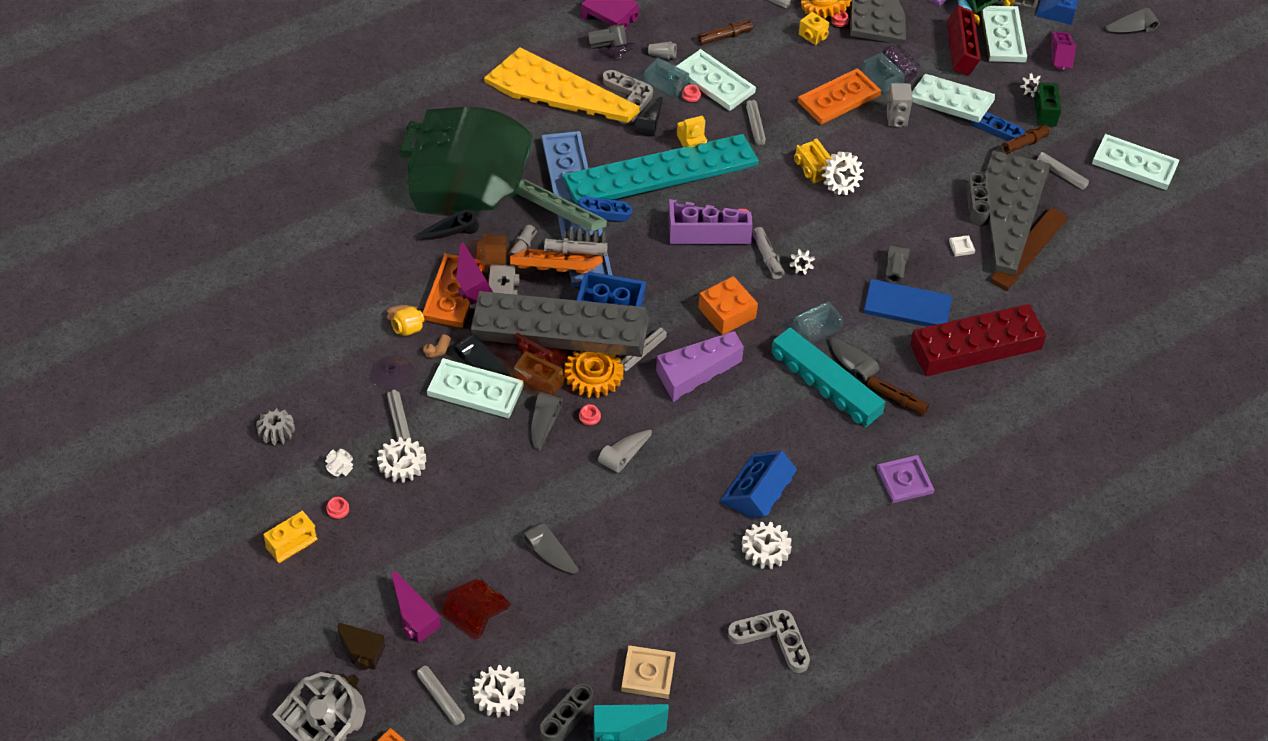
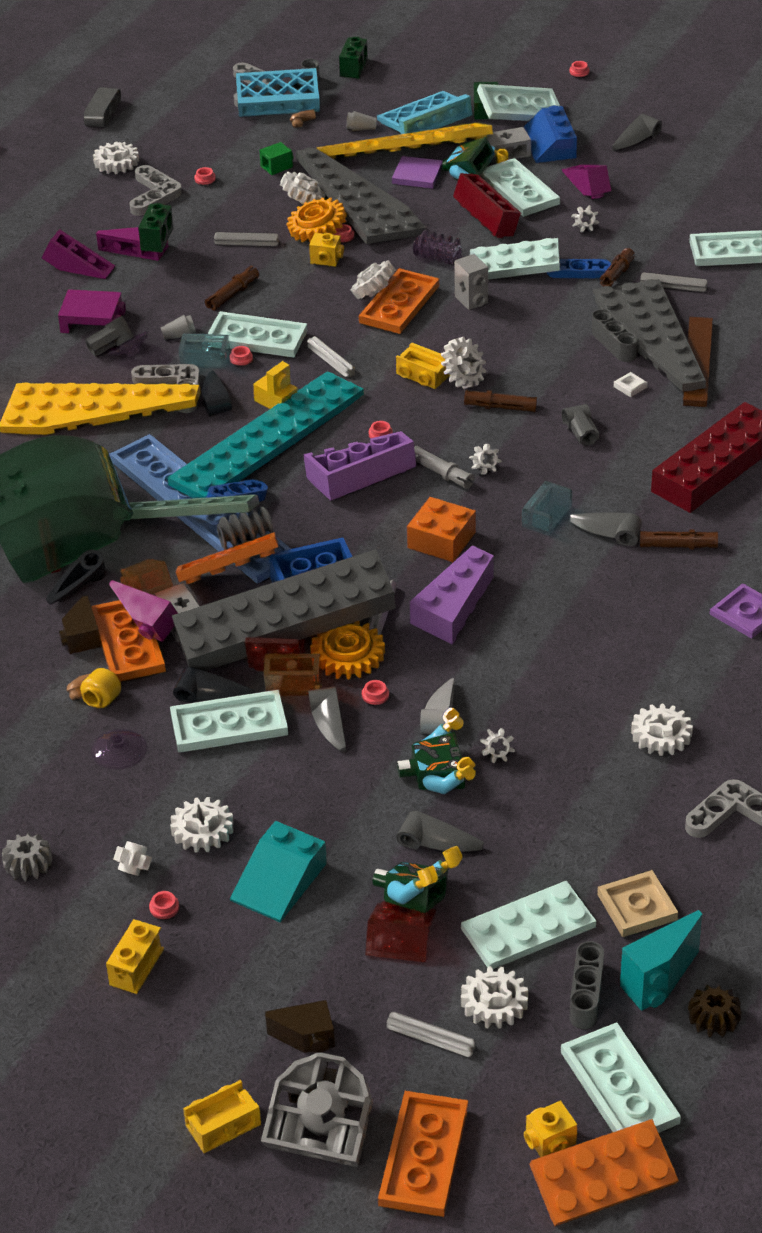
camera: 25 degrees left, 10 degrees down
(264, 682) = (222, 1116): none -> yellow hinge
(398, 415) = (160, 784): light grey axle -> none
(416, 614) = (336, 964): magenta slope -> none
(426, 266) = (80, 628): none -> dark brown slope
(426, 522) = (279, 871): none -> teal slope
(435, 351) = (155, 702): medium nougat arm -> none
(505, 580) = (415, 884): none -> torso
(523, 241) = (168, 554): light grey pin -> none
(564, 648) = (528, 925): none -> light aqua plate
(577, 247) = (236, 536): light grey pin -> none
(591, 489) = (438, 760): none -> torso
(646, 496) = (494, 738): none -> white gear
(746, 201) = (380, 428): none -> coral plate
(760, 484) = (607, 676): blue slope -> none
(827, 377) = (596, 551): teal brick -> none
(828, 70) = (373, 279): none -> white gear
(845, 212) = (503, 401): none -> reddish brown pin
(882, 72) = (429, 262): clear light blue panel -> none
(907, 304) = (618, 456): blue tile -> none
(1047, 104) = (615, 228): dark green brick -> none

